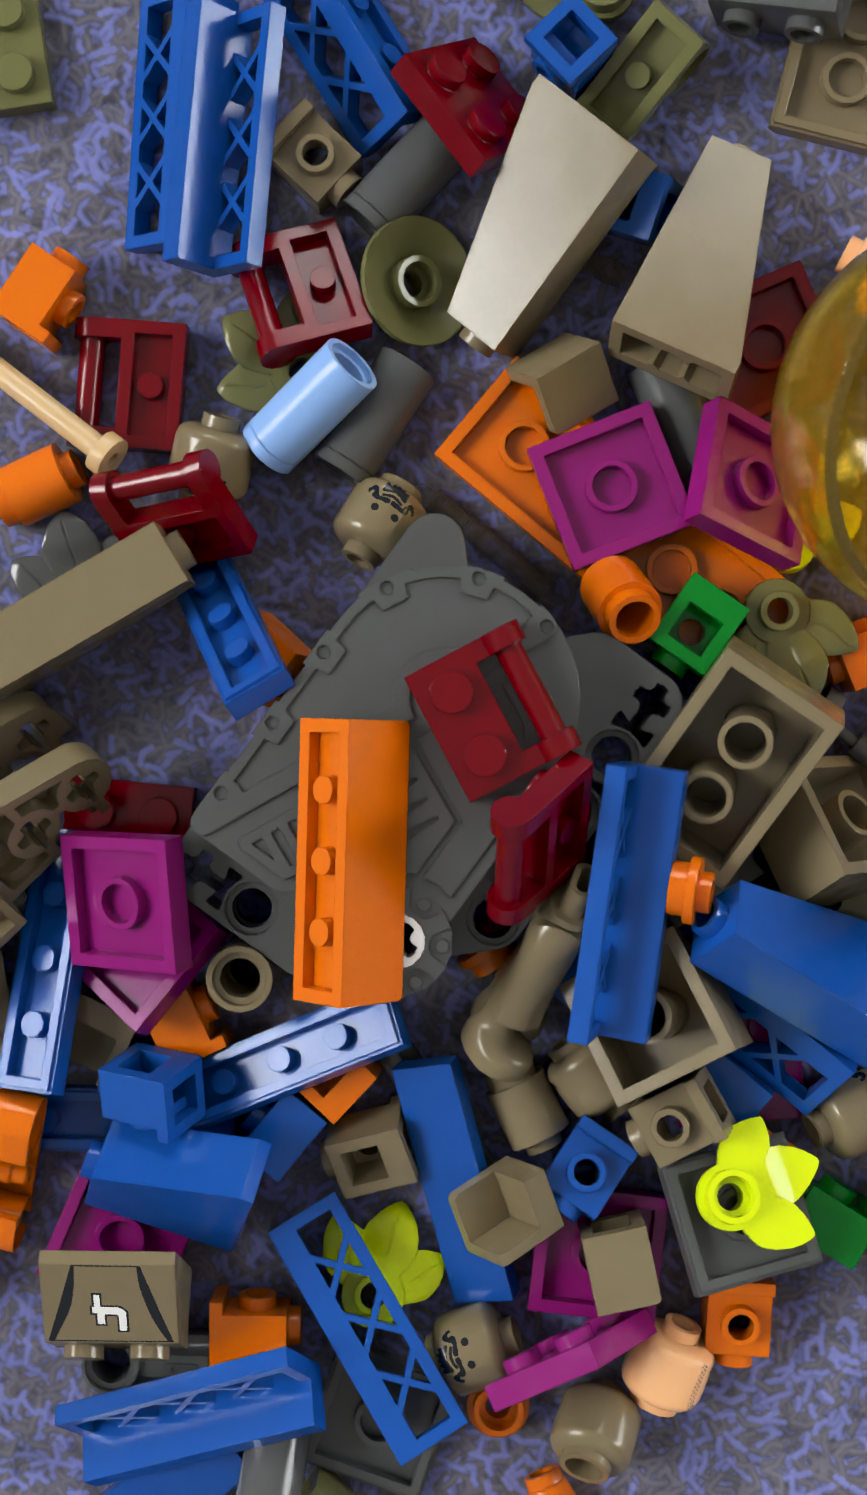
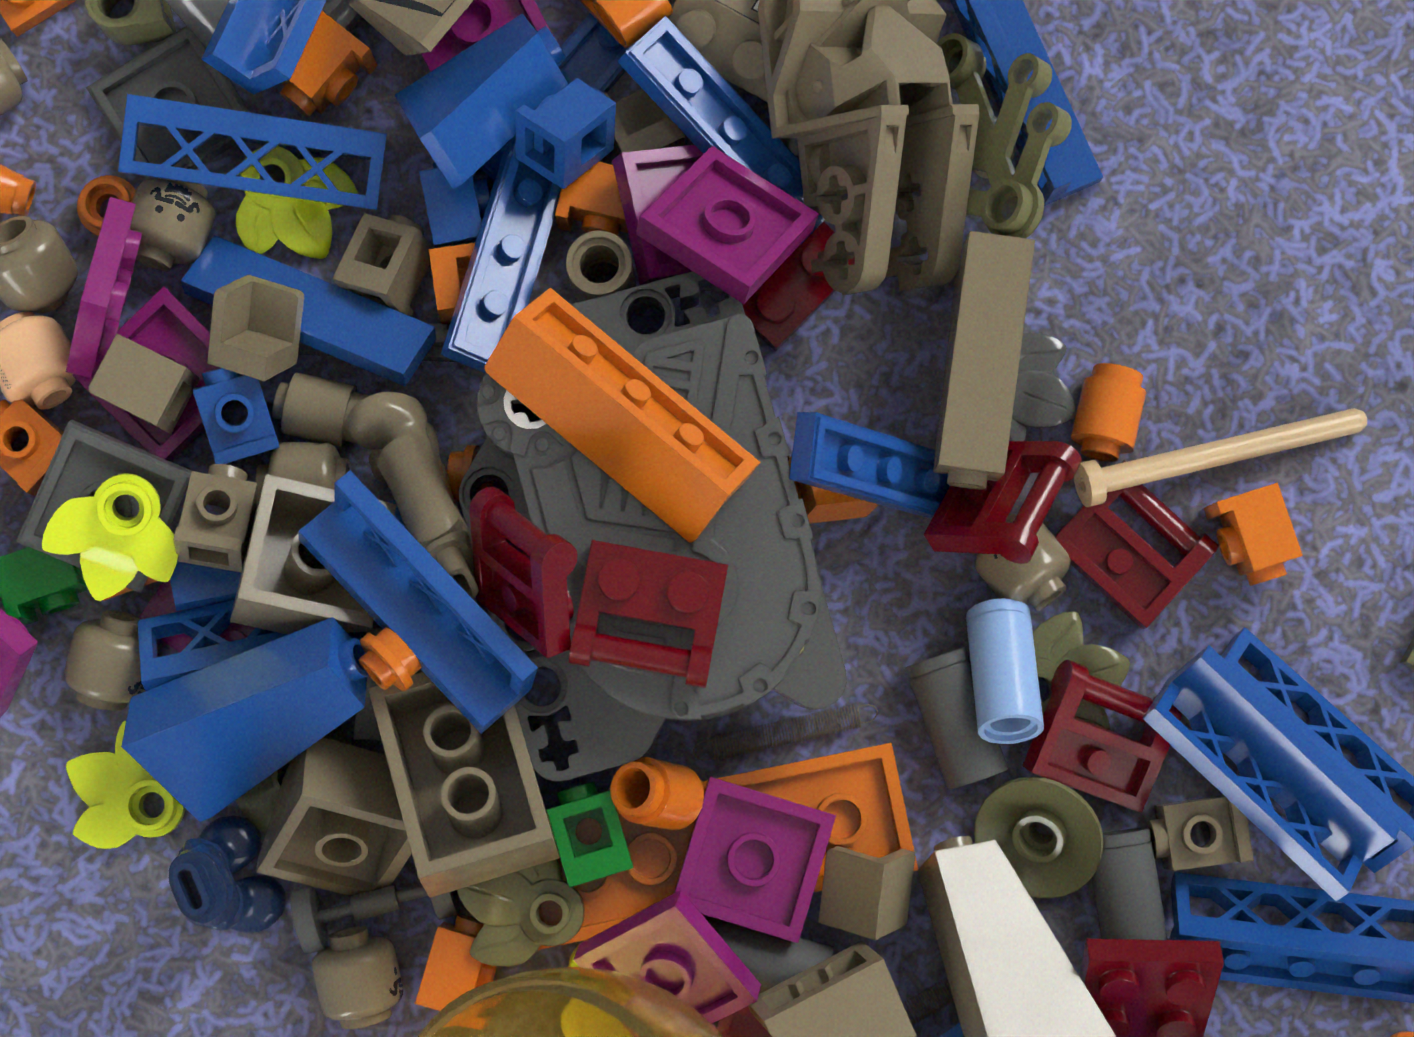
camera: 125 degrees right, 5 degrees down
(376, 519) = (874, 656): dark tan head -> none

